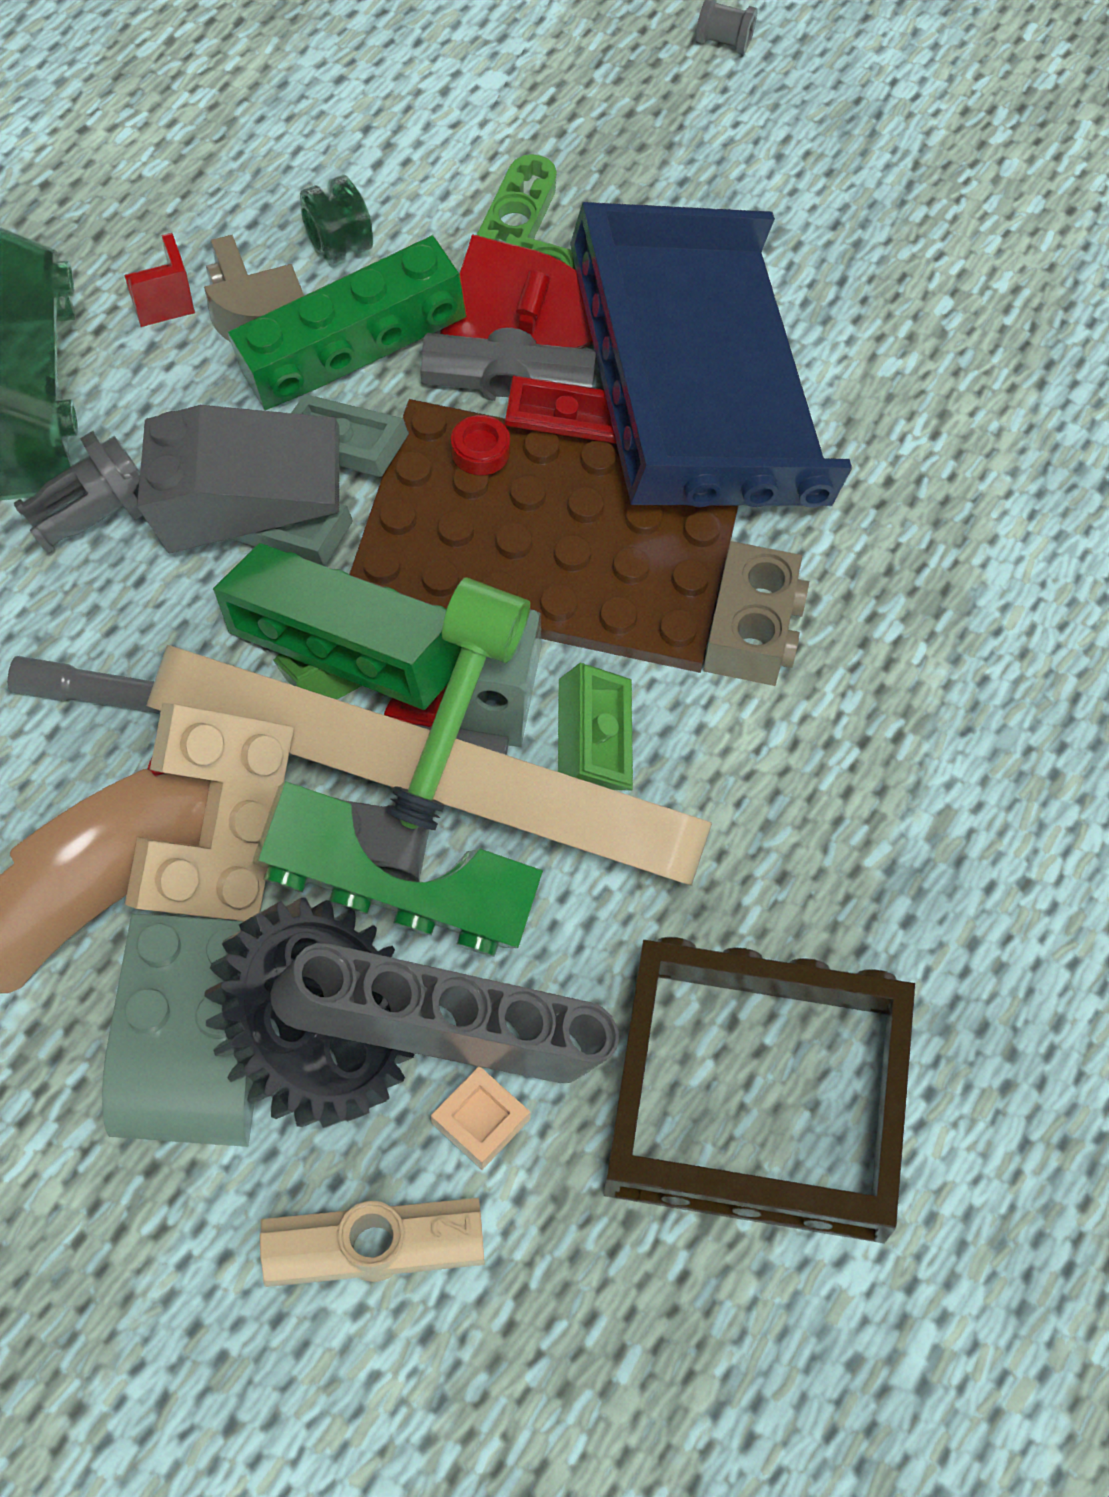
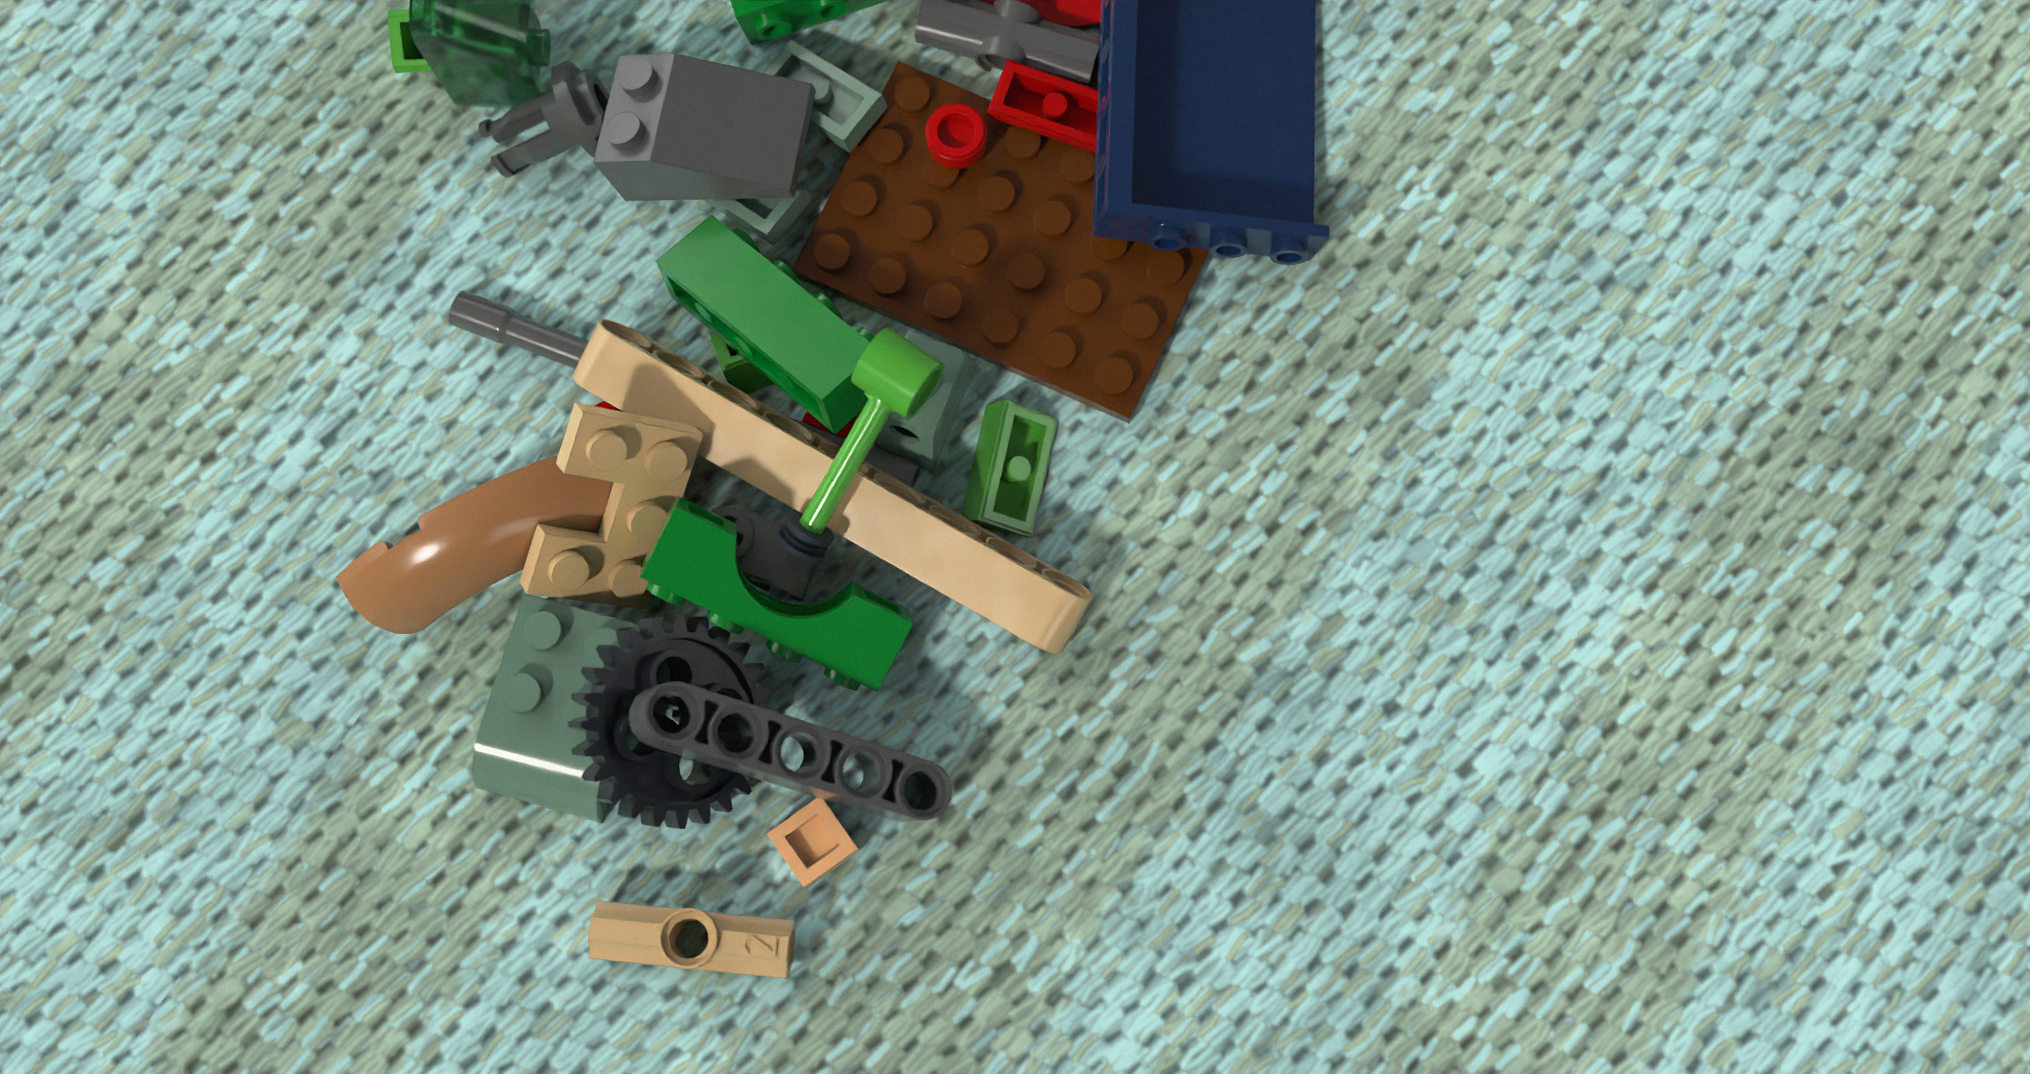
camera: 20 degrees right, 15 degrees up
(747, 1195) = (1090, 751): dark brown window -> none
(757, 615) = (1183, 371): dark tan brick -> none

